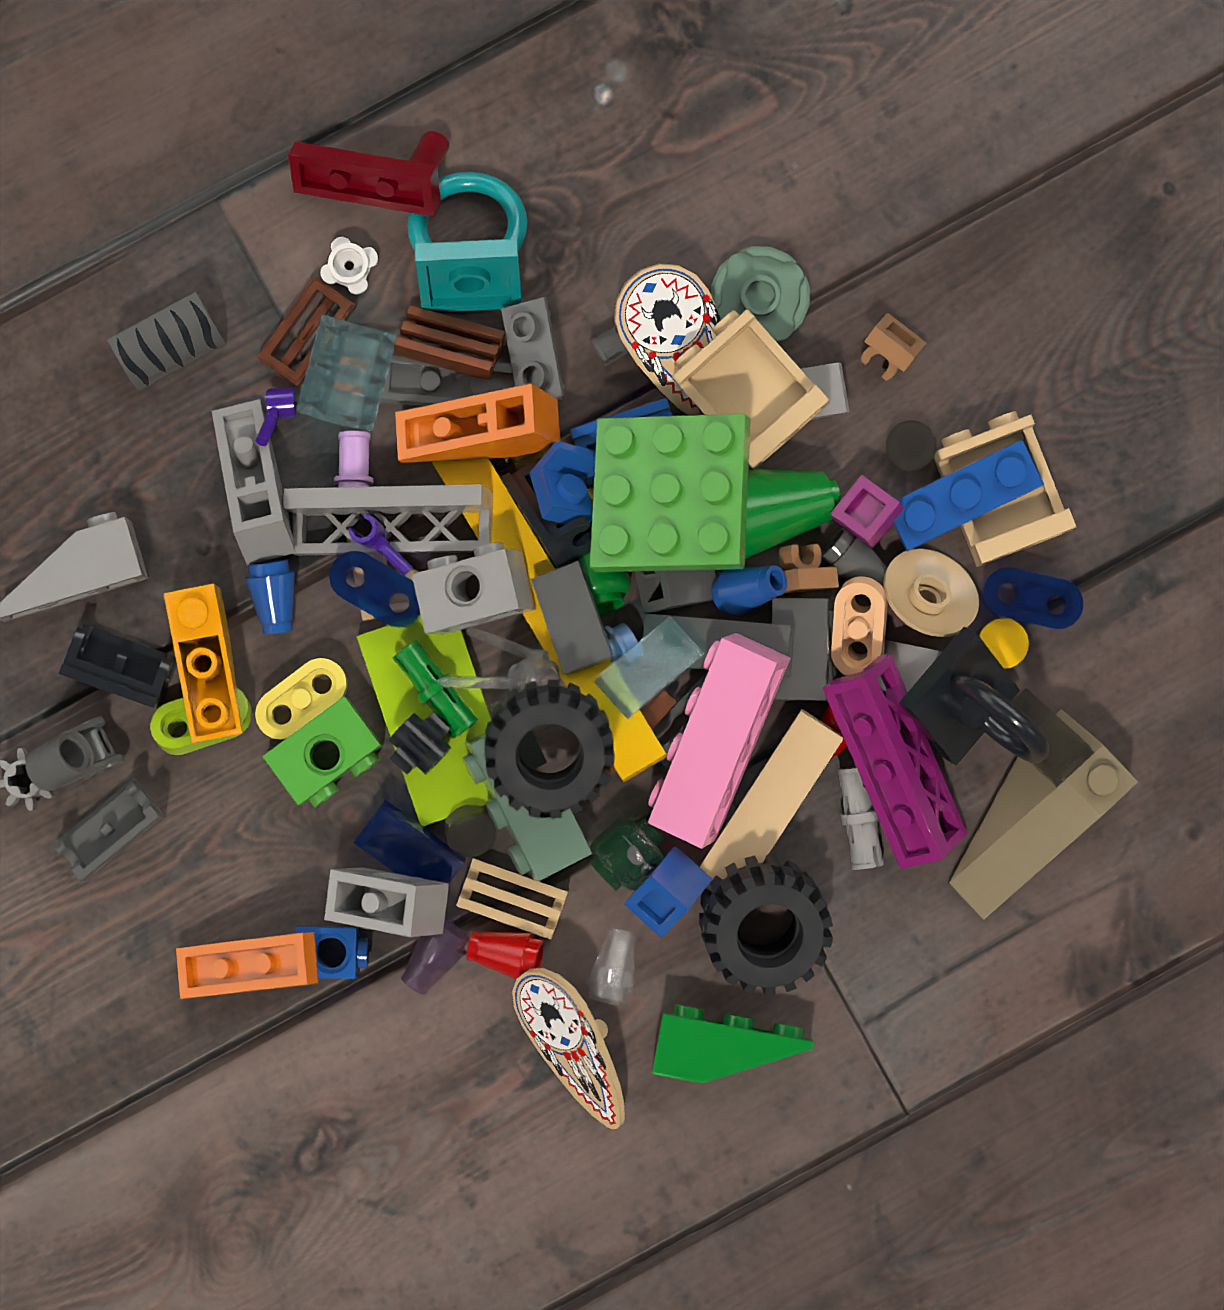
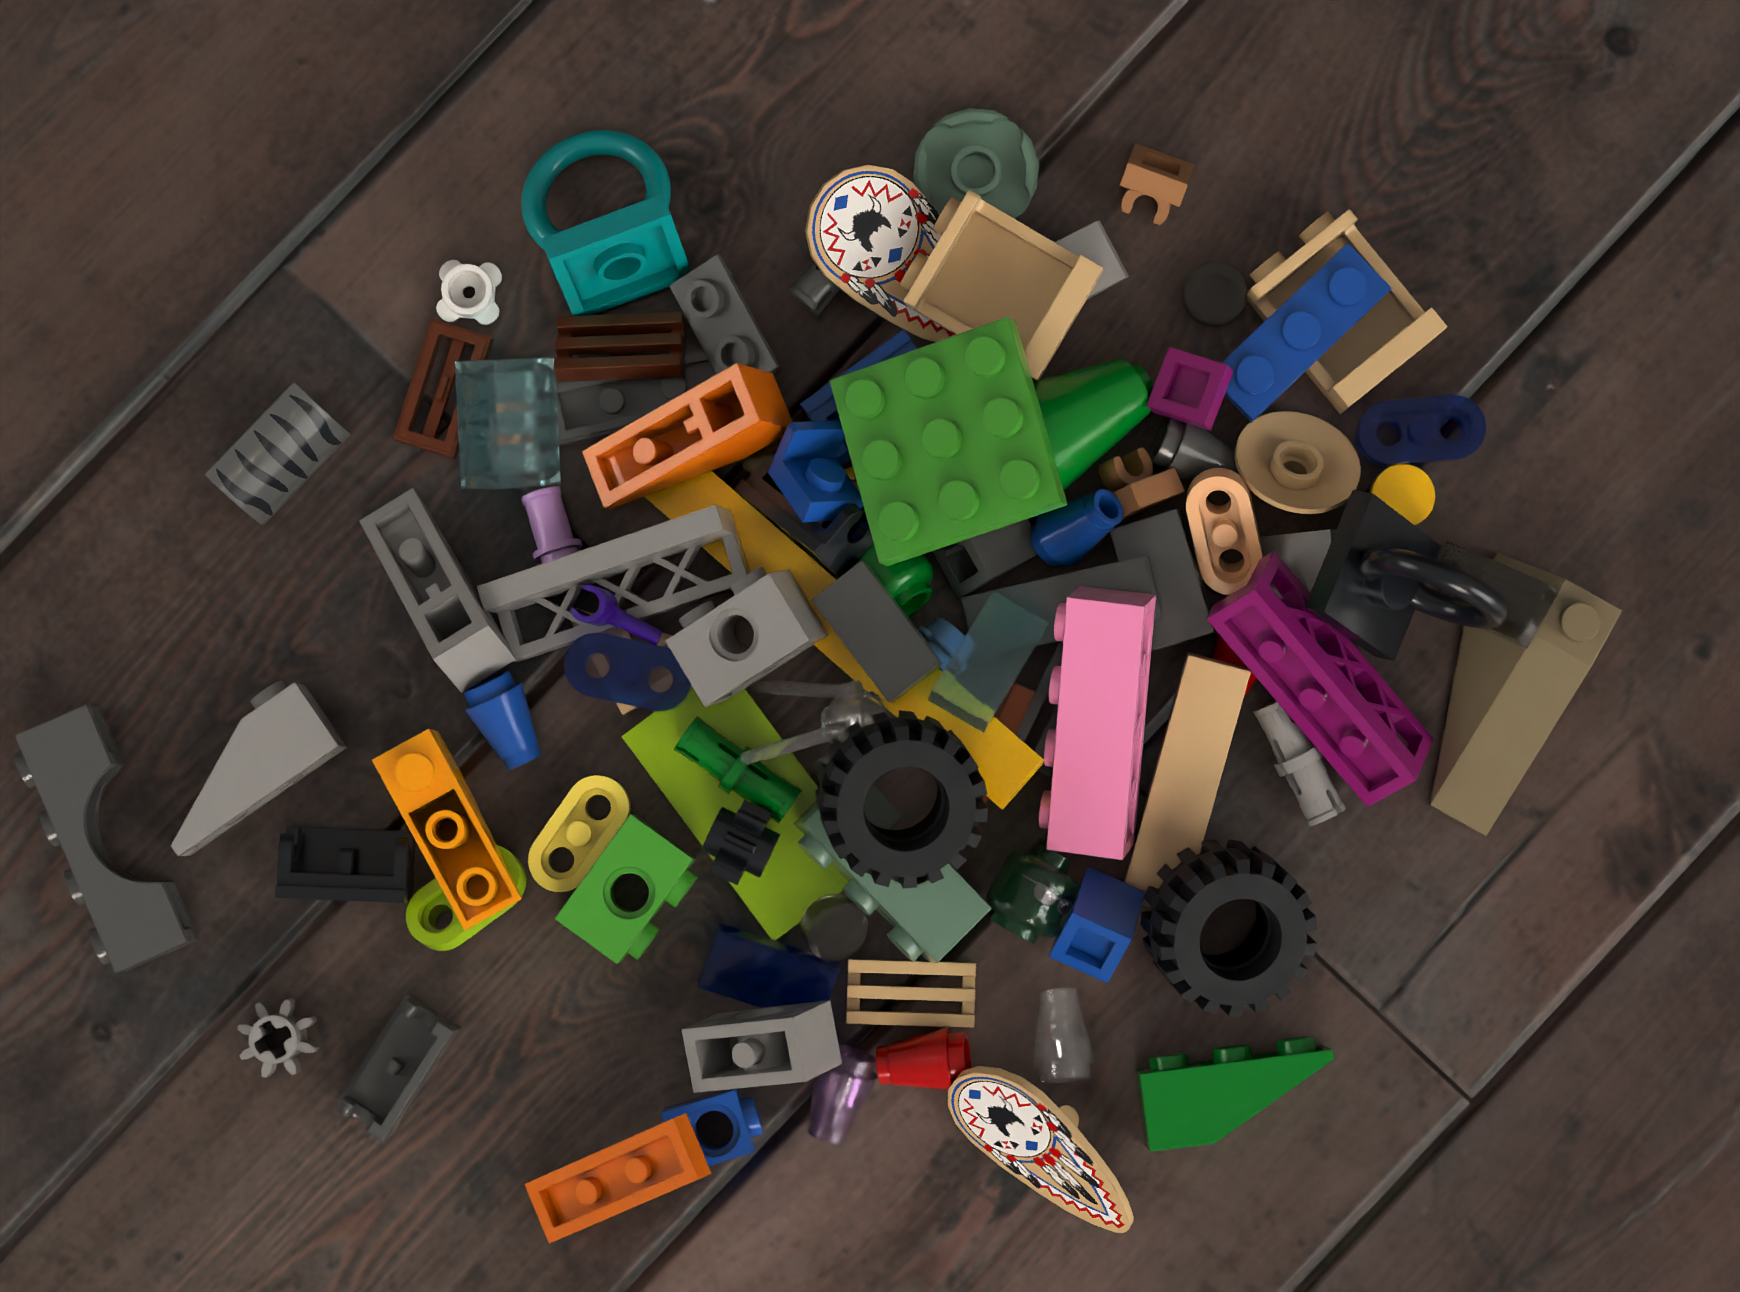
camera: 15 degrees left, 0 degrees up
(73, 756) = (325, 992): dark grey piece -> none
(278, 405) = (438, 487): dark purple hand -> none
(371, 178) = (462, 177): dark red piece -> none

